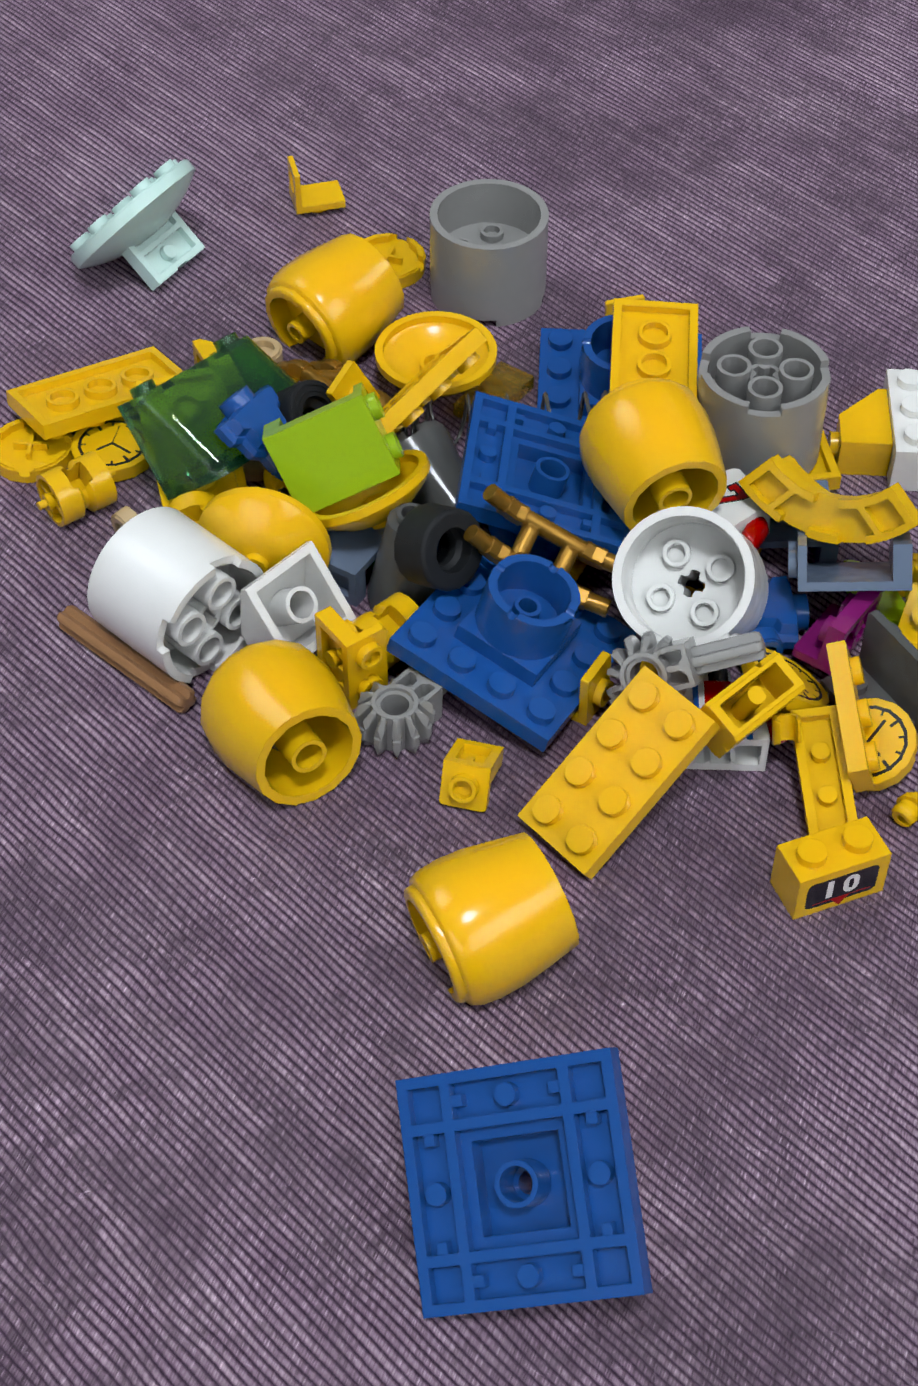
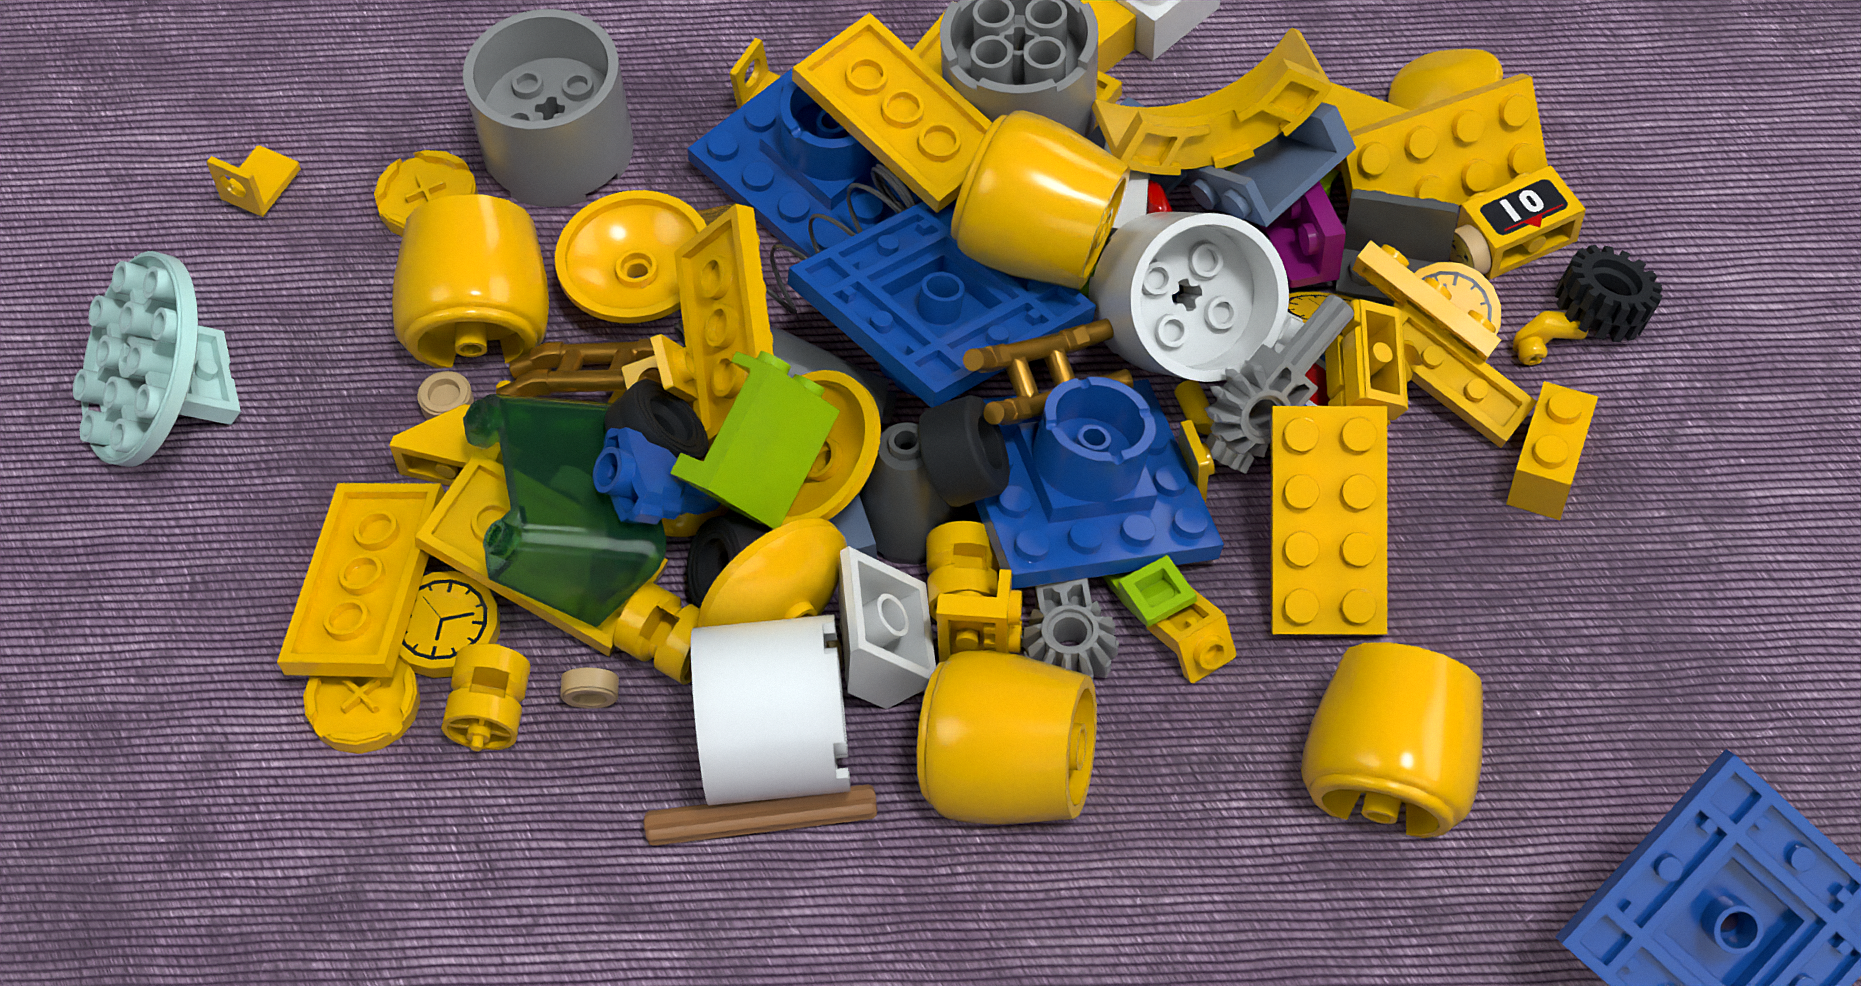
camera: 45 degrees left, 10 degrees up
(475, 728) = (1153, 590): none -> lime slope

